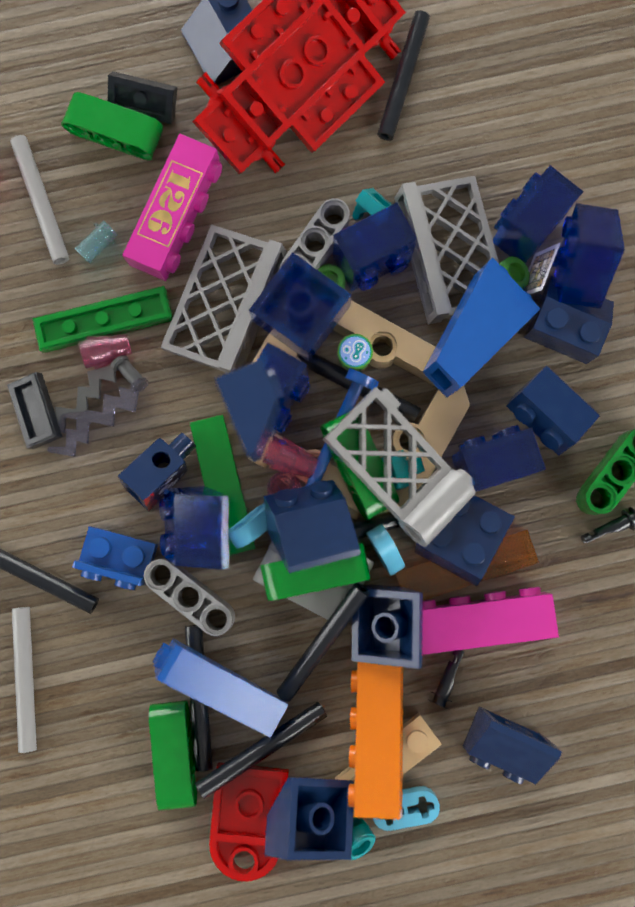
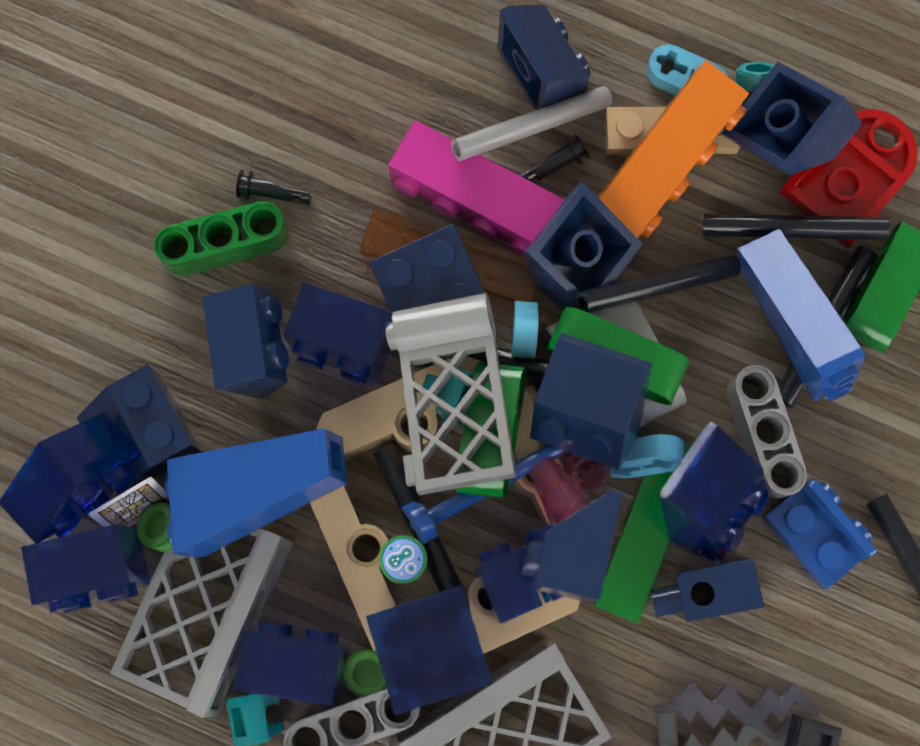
camera: 150 degrees left, 5 degrees down
(482, 693) = (531, 123): none -> light grey piece

